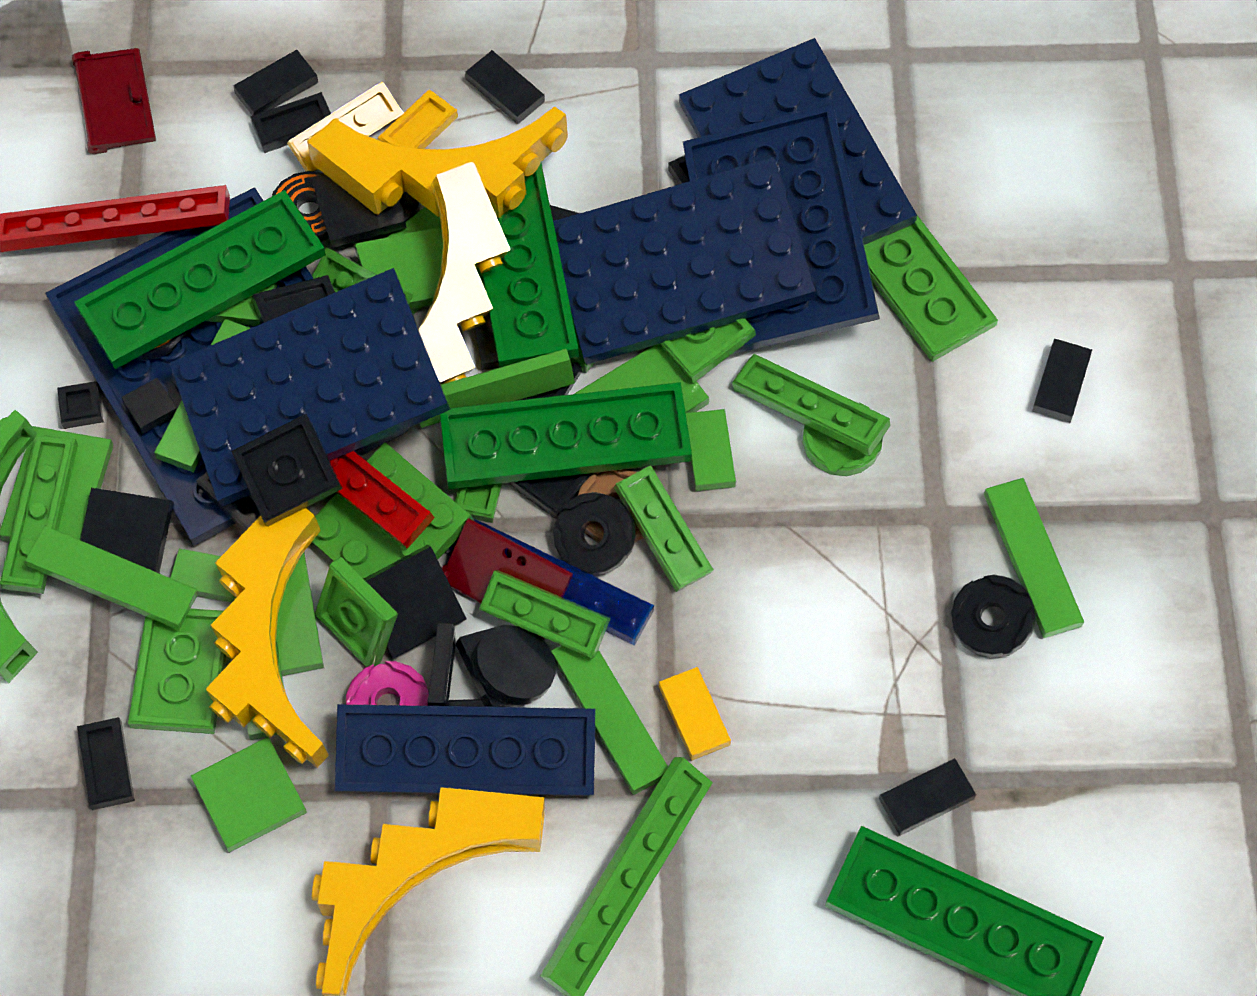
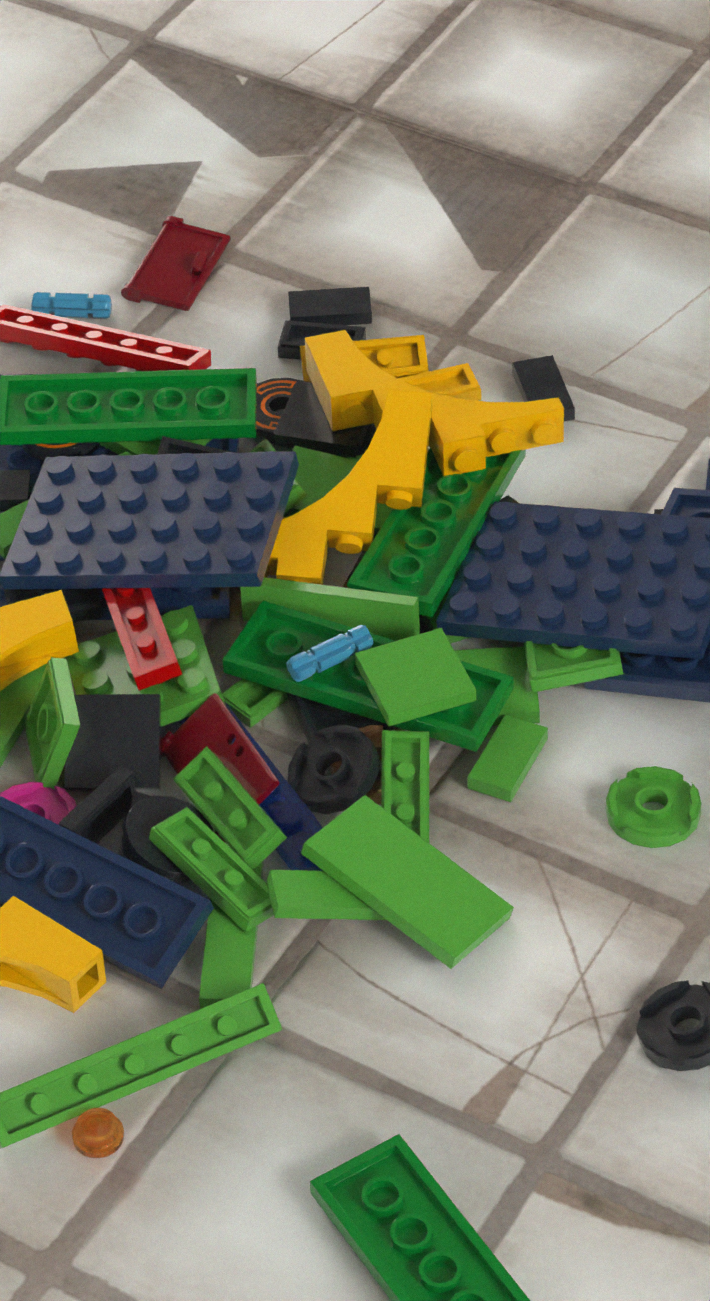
camera: 35 degrees right, 20 degrees down
(55, 184) = (72, 304): none -> dark azure axle
(286, 470) = (72, 568): black tile -> none
(533, 436) = (329, 653): none -> dark azure axle
(574, 674) = (214, 868): none -> bright green tile
(612, 423) = (415, 677): none -> bright green tile
(639, 948) = (97, 1133): none -> clear orange plate
(680, 643) = (314, 896): none -> bright green tile
(694, 713) = (313, 967): yellow tile -> none
(720, 605) = (407, 881): none -> bright green tile
(811, 404) = (638, 759): bright green tile -> none
(927, 796) = (493, 1151): black tile -> none

